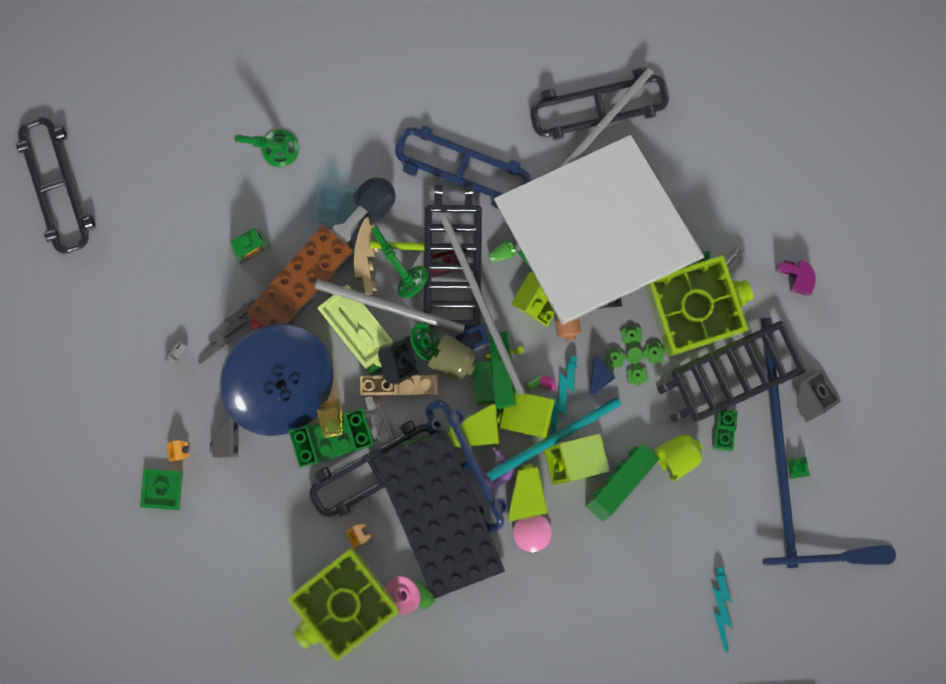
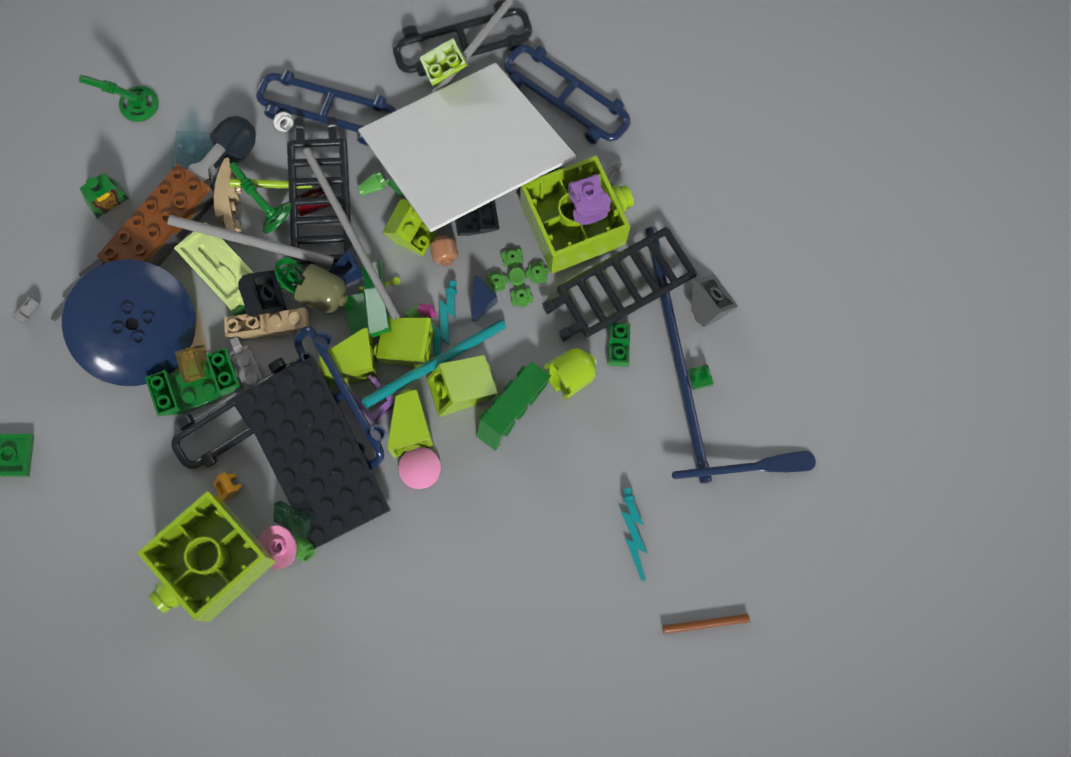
camera: 10 degrees left, 10 degrees down
(175, 450) = (22, 411): light orange tile -> none
(226, 440) = (79, 394): dark grey slope -> none
(416, 572) = (292, 519): none -> clear green plate
(420, 181) = (284, 126): none -> white plate
(582, 138) = (443, 61): none -> lime slope
(712, 305) = (589, 200): none -> medium lavender piece
(720, 215) = (593, 131): none -> dark blue bar
(803, 275) = (683, 182): magenta brick -> none

